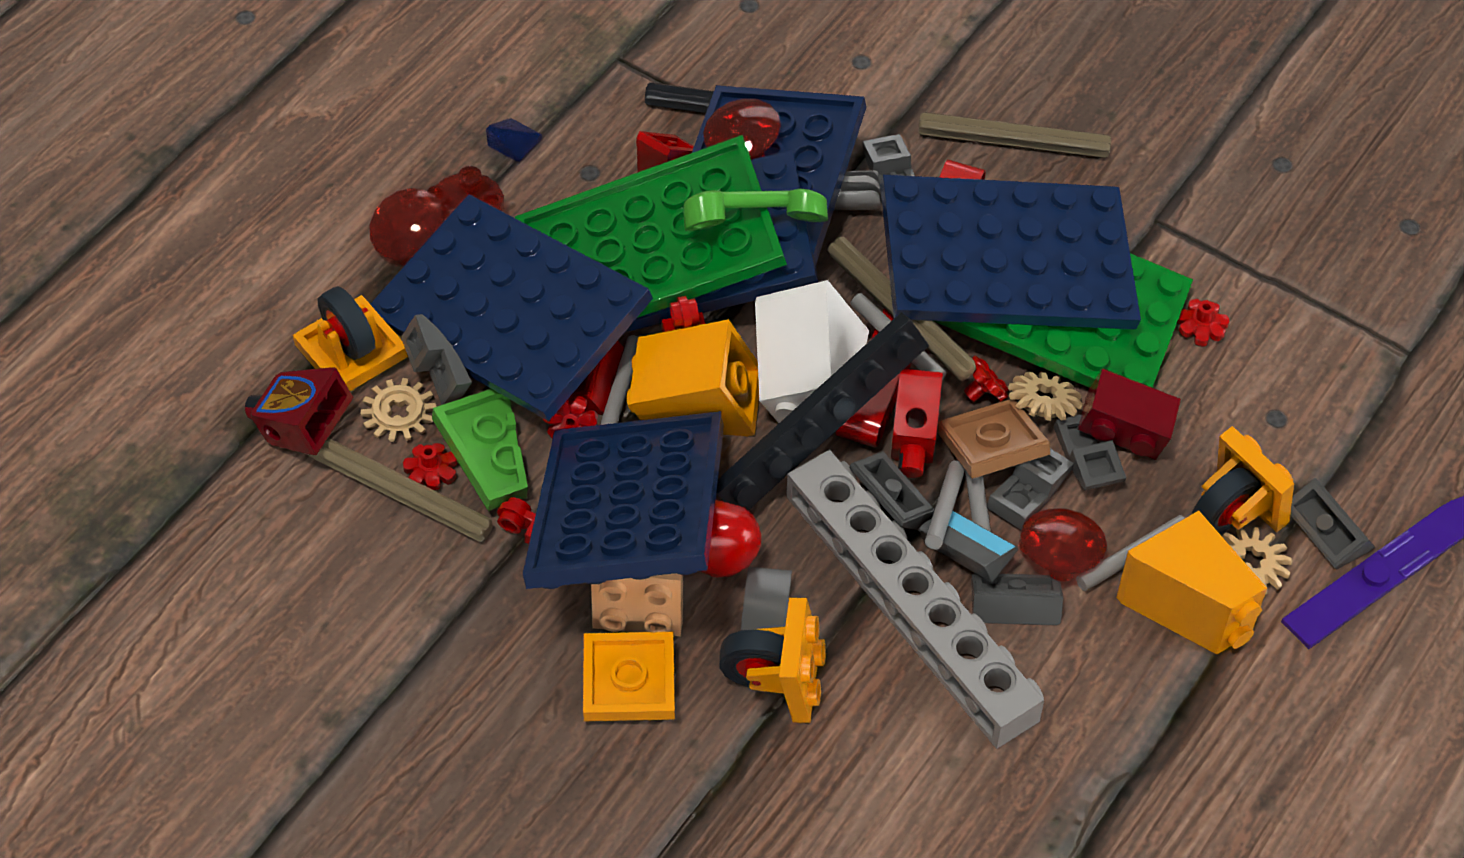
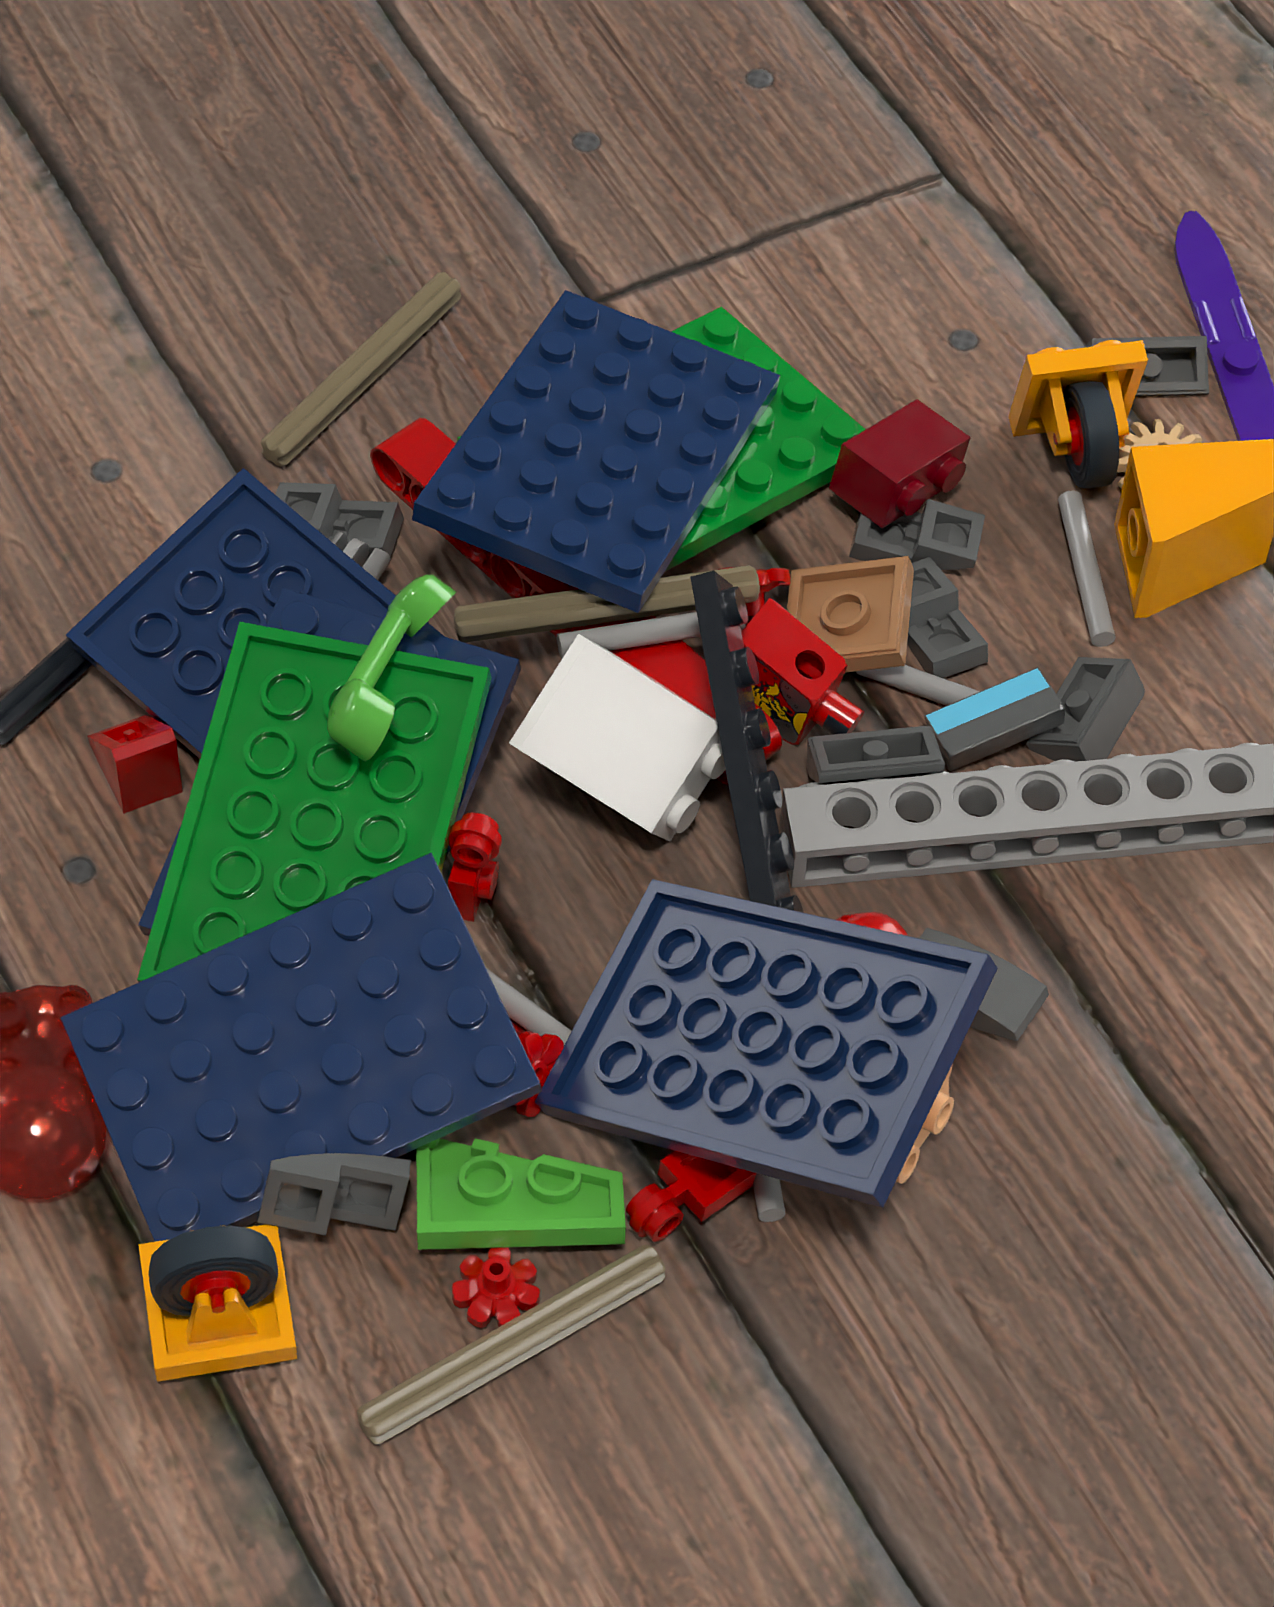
camera: 65 degrees left, 0 degrees up
(300, 408) = (311, 1414): dark red torso -> none
(399, 396) = (382, 1269): tan gear -> none
(628, 676) = (996, 1186): light orange plate -> none
(696, 373) = (560, 895): light orange slope -> none
(745, 117) = (183, 635): clear red dish -> none
(780, 659) = (1086, 986): light orange plate -> none
(944, 505) = (929, 711): light grey bar -> none
(1026, 390) = (785, 541): tan gear -> none
(1063, 542) = (1041, 624): clear red dish -> none
(1203, 322) = (786, 330): red plant -> none

